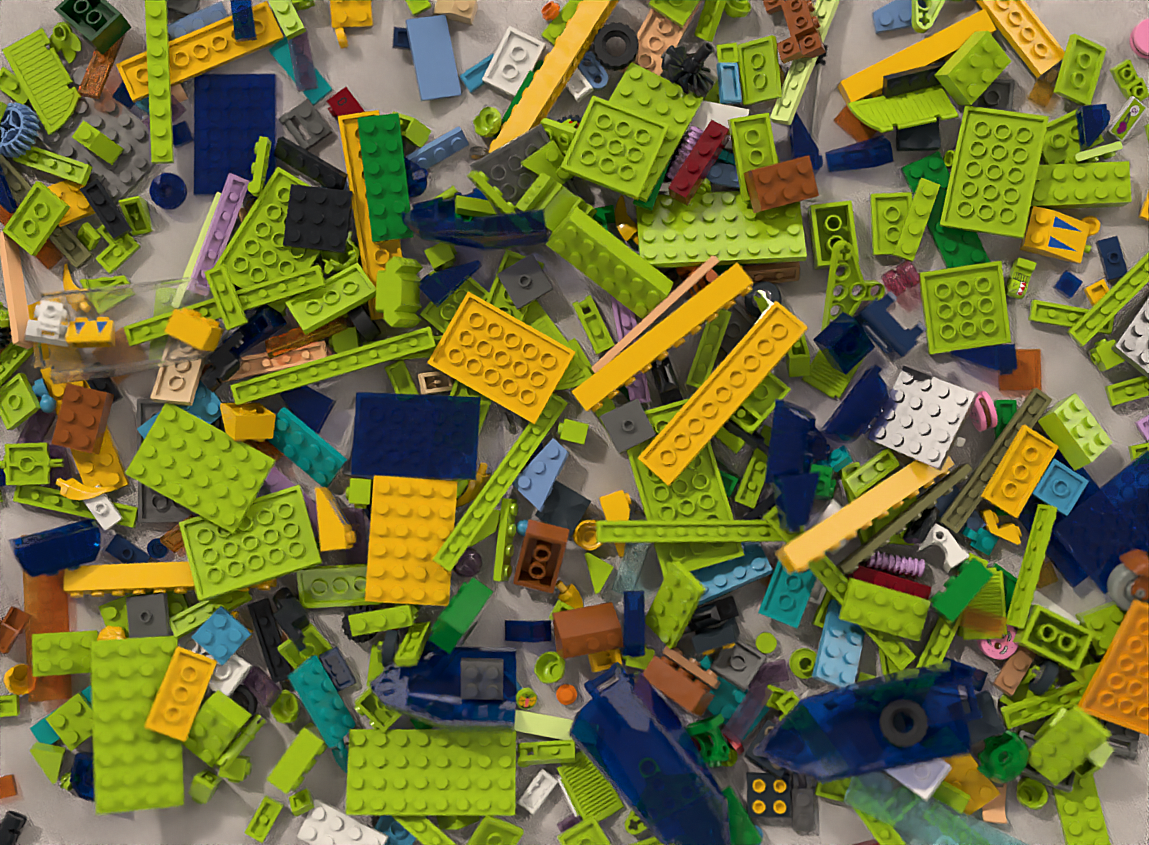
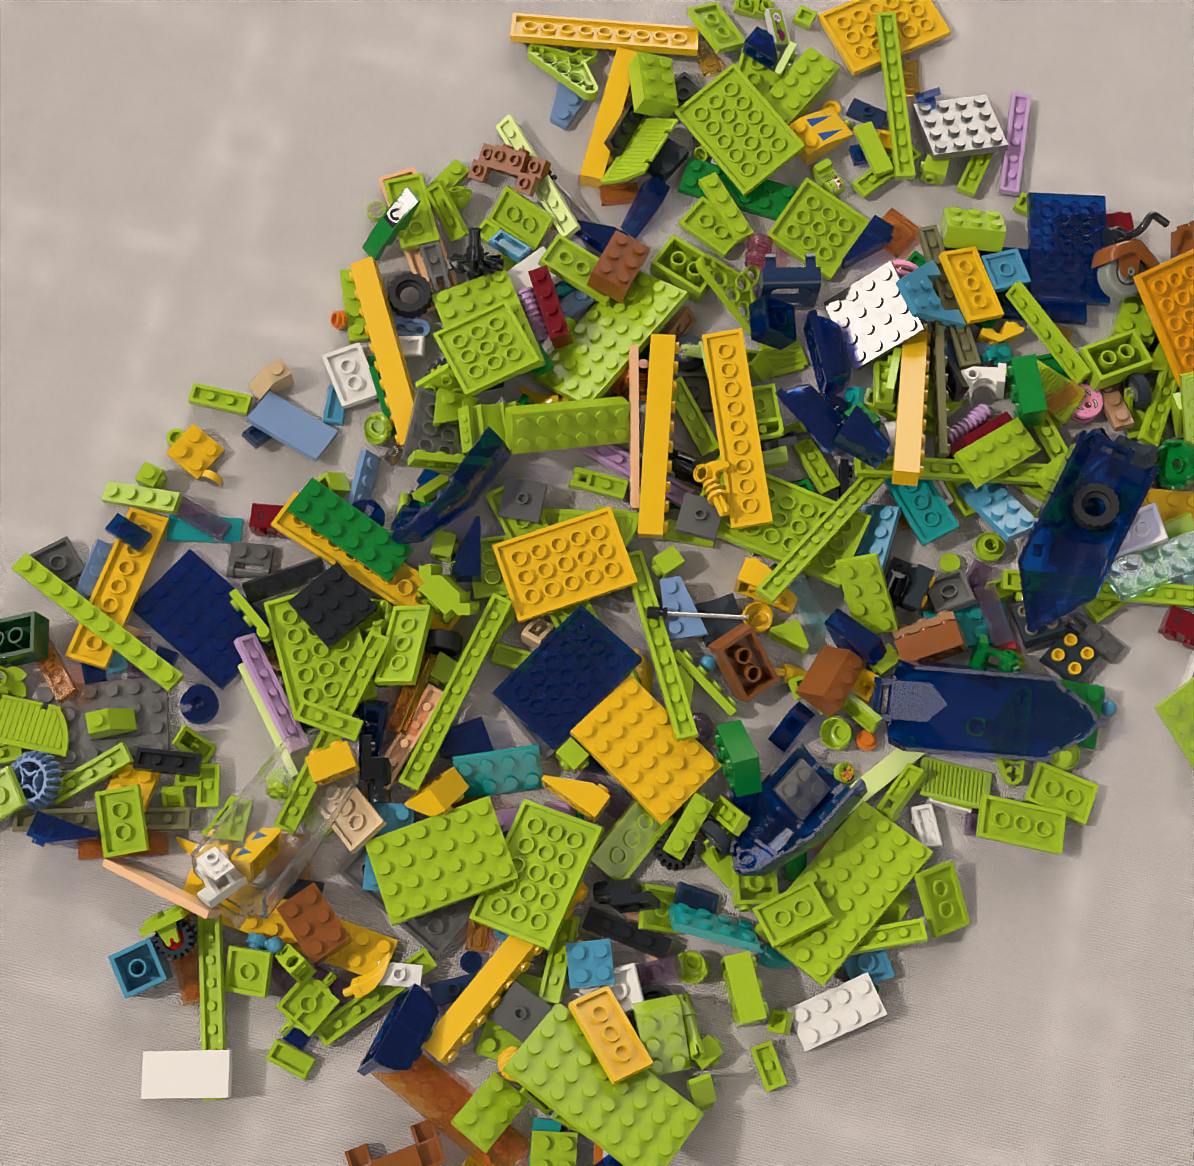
camera: 55 degrees left, 15 degrees down
(43, 430) = (295, 964): none -> lime leg
(148, 307) = (277, 791): none -> lime plate
(379, 749) = (792, 913): none -> lime plate
(520, 457) = (655, 612): none -> flat silver piece
(582, 675) = (861, 713): none -> lime tile
(658, 41) = (435, 264): none -> flat silver hinge
(666, 406) = (710, 476): none -> yellow piece
(880, 473) = (891, 375): none -> lime plate
(904, 661) = (1047, 473): none -> lime plate
(967, 443) = (923, 300): none -> dark azure wing
(1079, 291) = (873, 149): none -> lime tile

